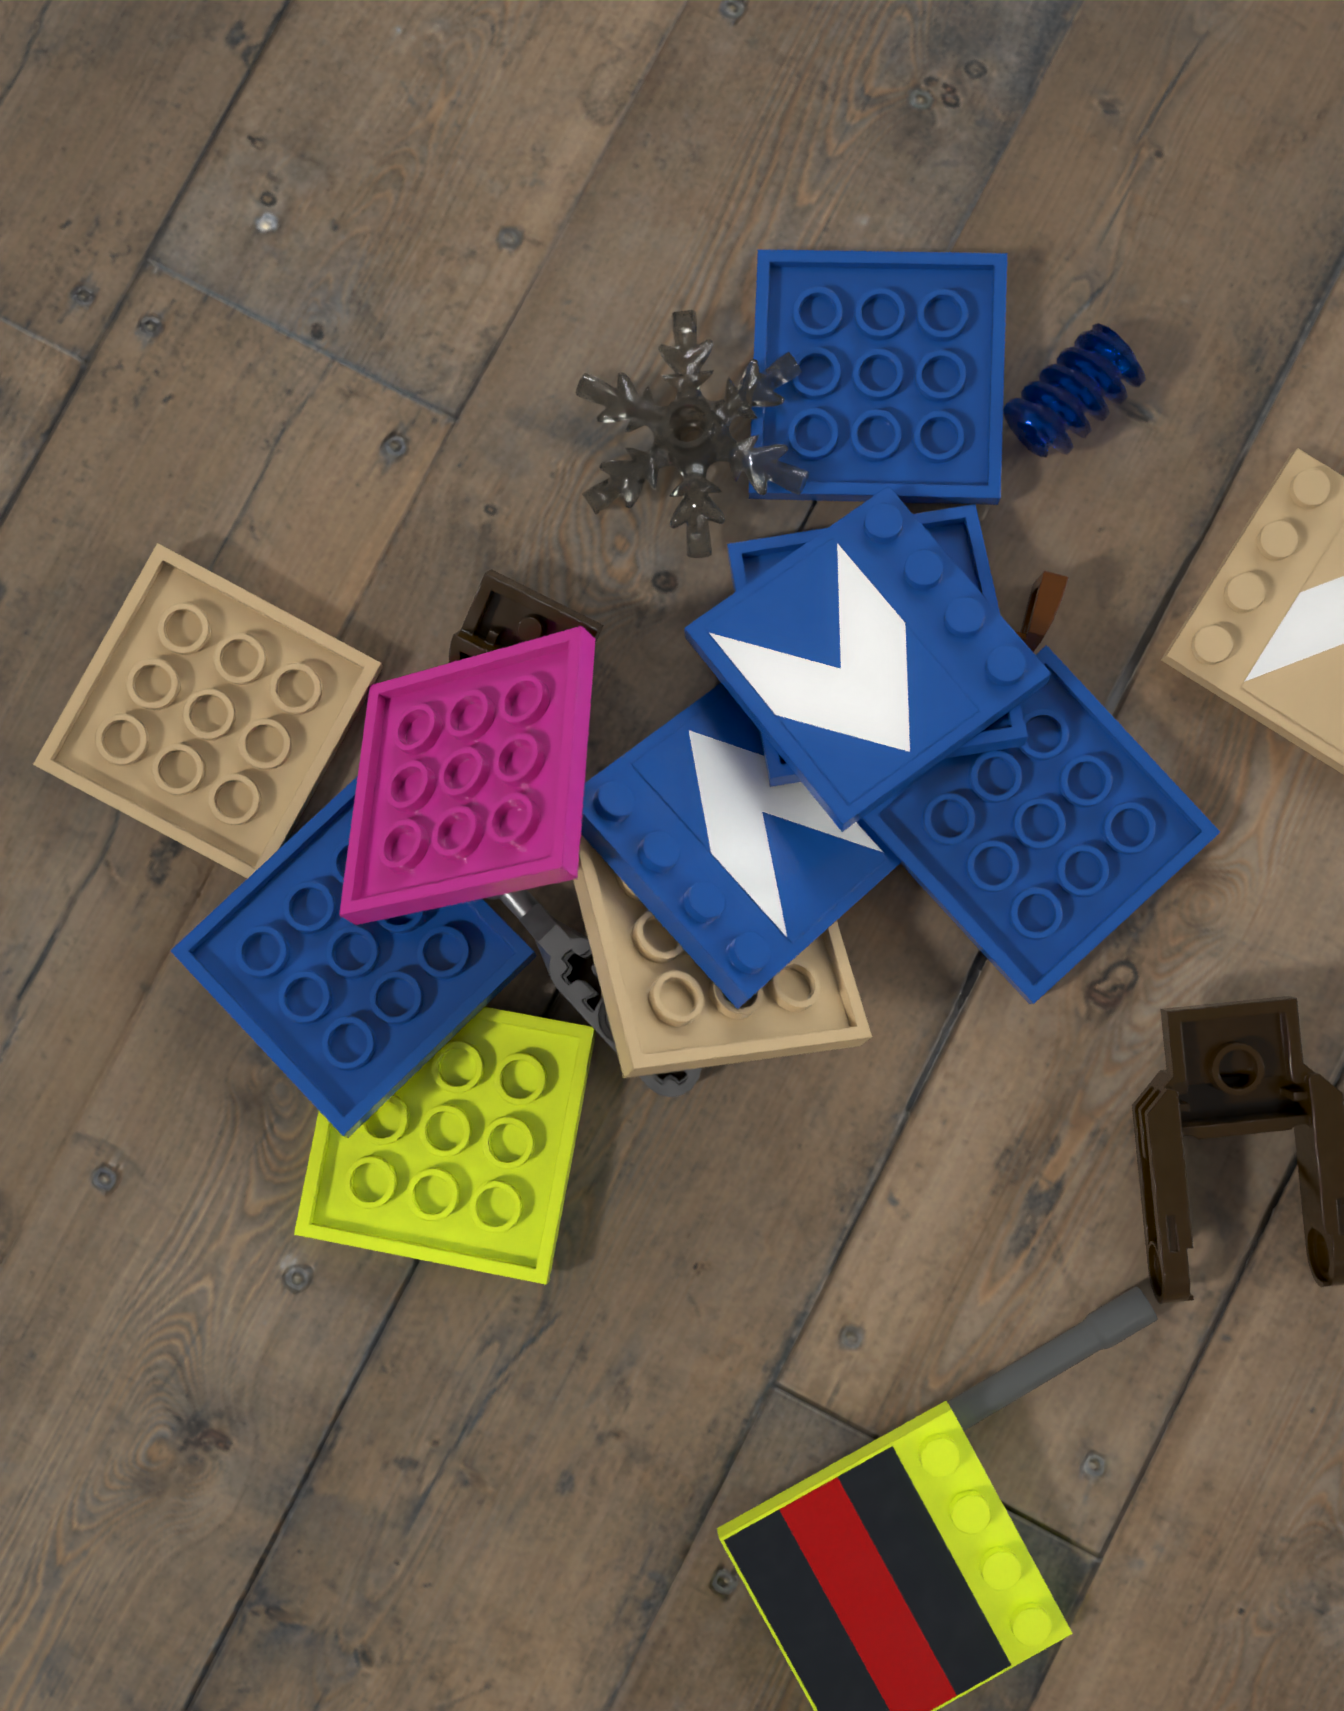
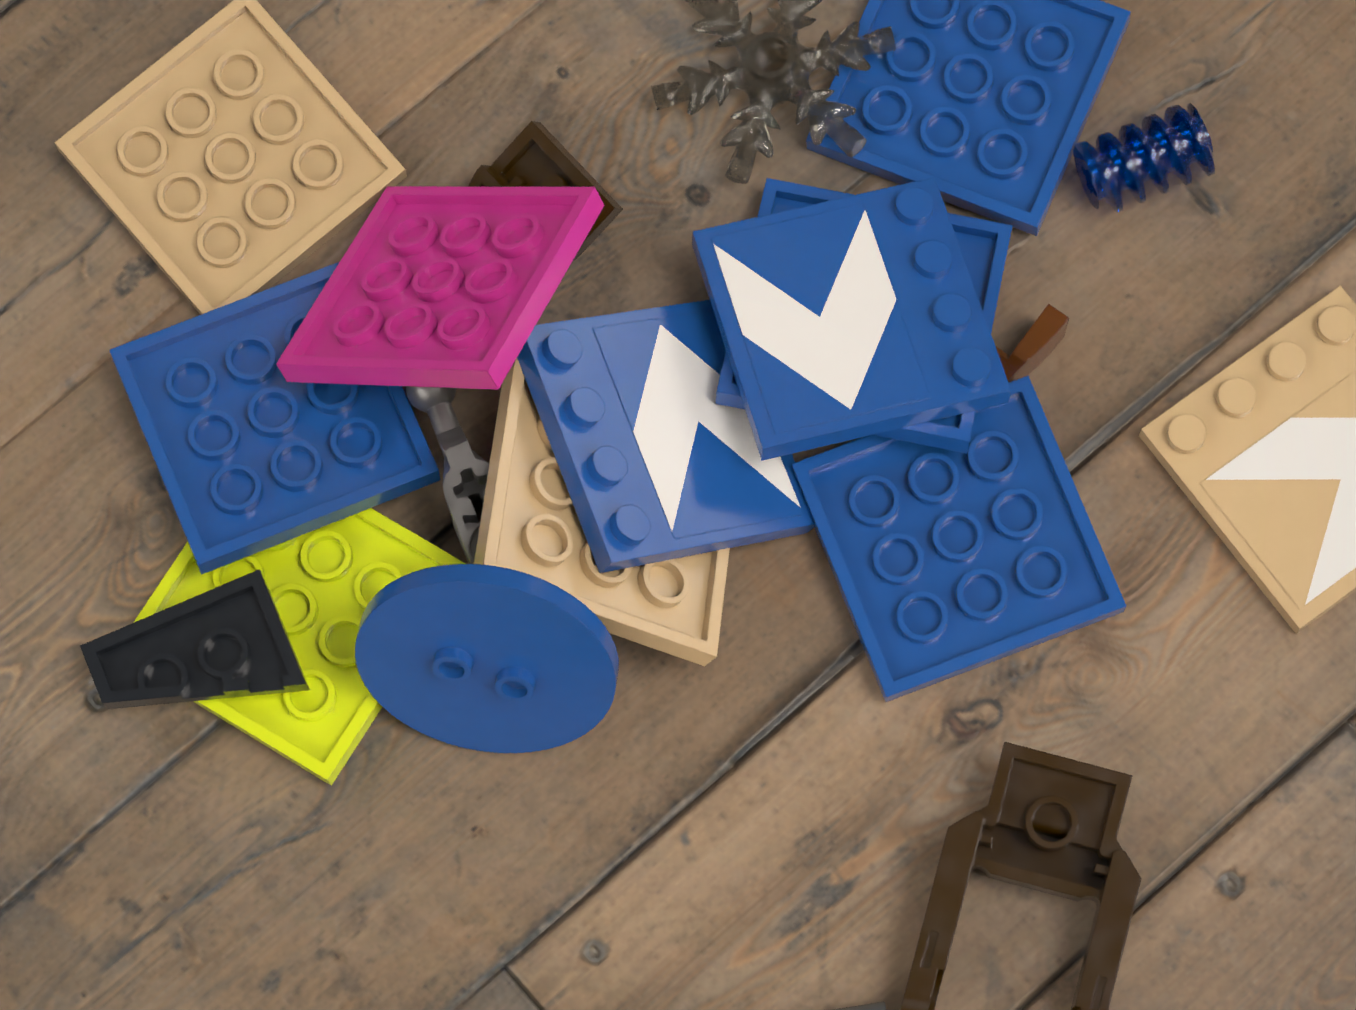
camera: 25 degrees right, 10 degrees down
(377, 1208) = (199, 650): none -> black wing
(658, 1126) = (487, 658): none -> blue plate

